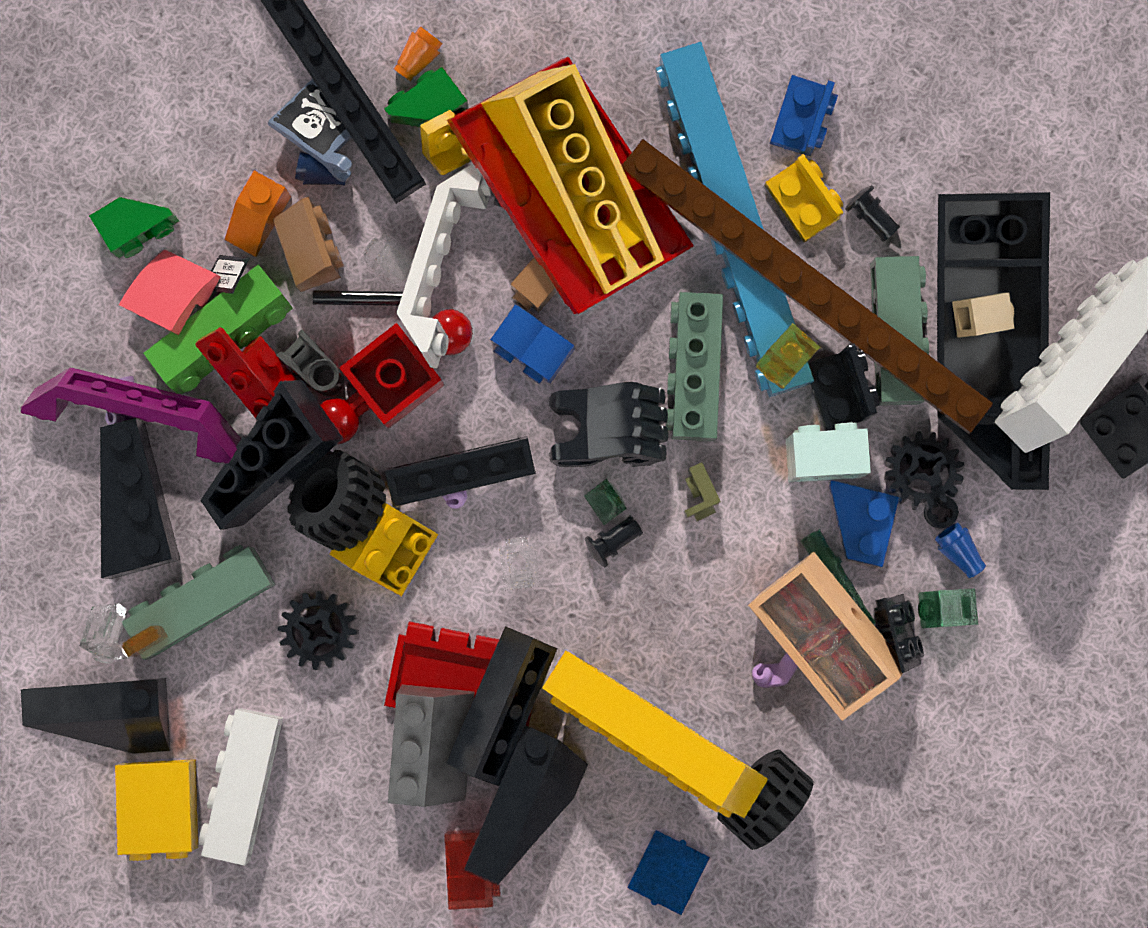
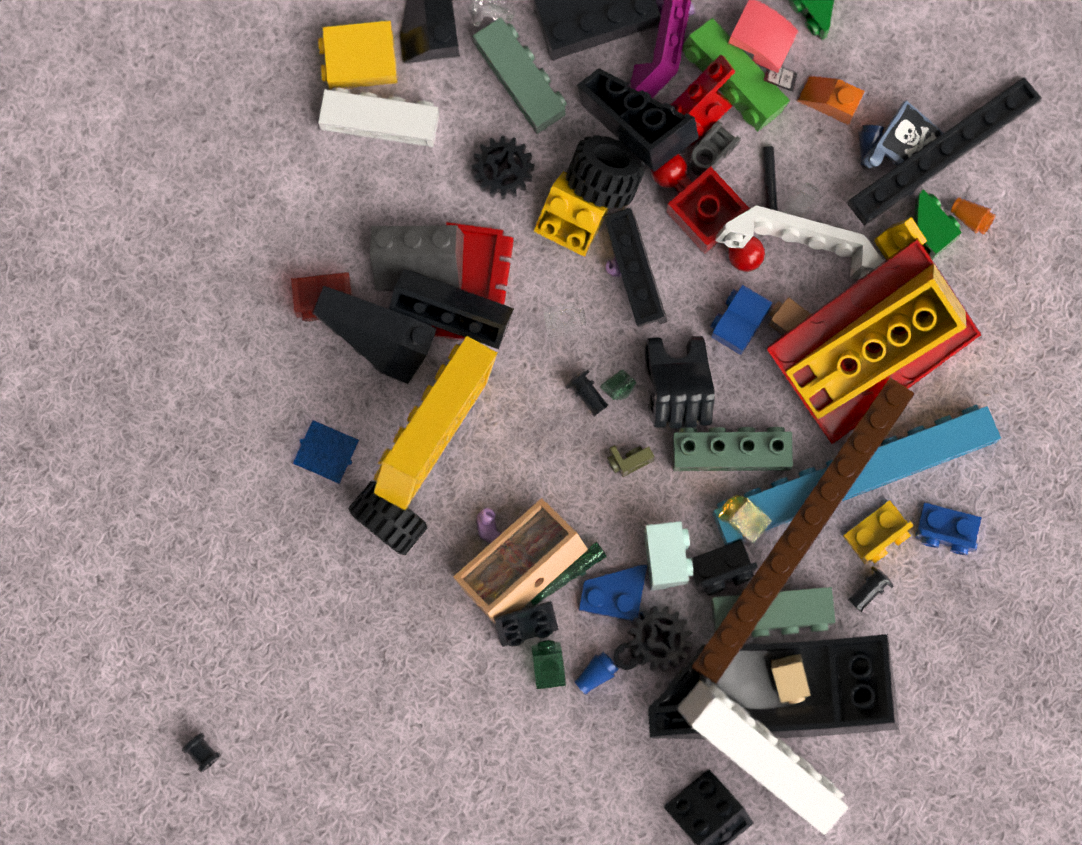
camera: 85 degrees right, 5 degrees down
(144, 640) = (487, 33): clear orange tile -> none
(306, 246) = (807, 138): medium nougat slope -> none

